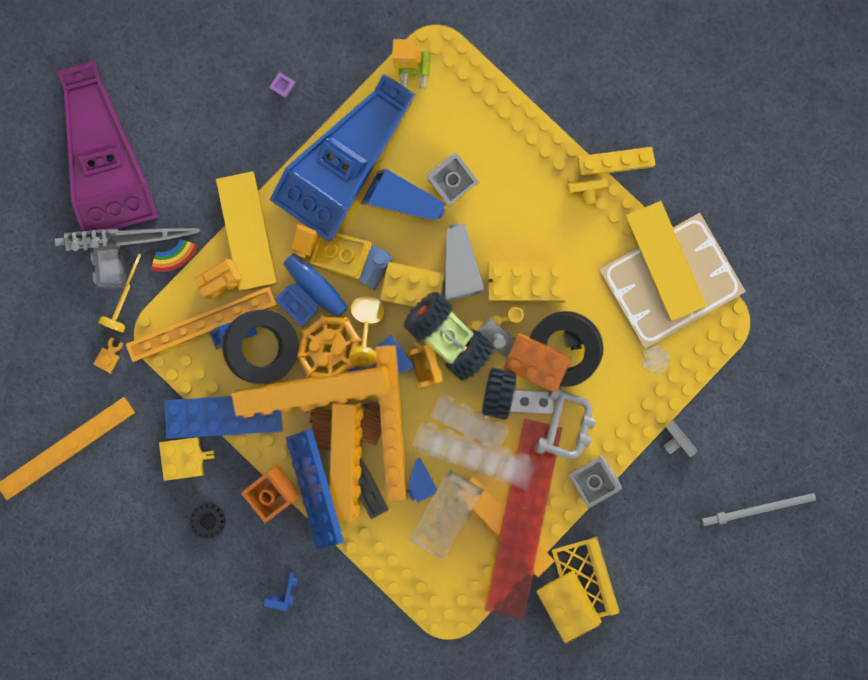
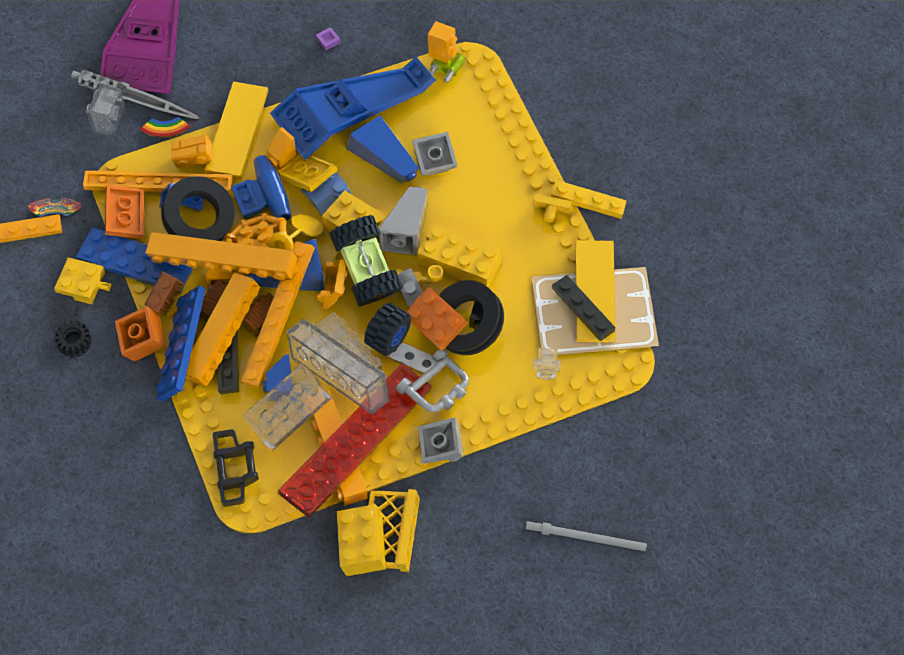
camera: 25 degrees right, 25 degrees down
(107, 358) = (64, 181): light orange plate -> none
(112, 323) = (119, 124): yellow piece -> none
(113, 390) = (45, 206): none -> clear tile
(187, 372) = (124, 211): none -> orange plate
(272, 445) = (164, 293): none -> dark orange brick
(276, 601) = (104, 432): blue bracket -> none
(420, 605) = (246, 449): none -> black bar
(664, 287) = (583, 308): none -> pearl dark grey plate
(679, 440) = (537, 443): light grey tile -> none

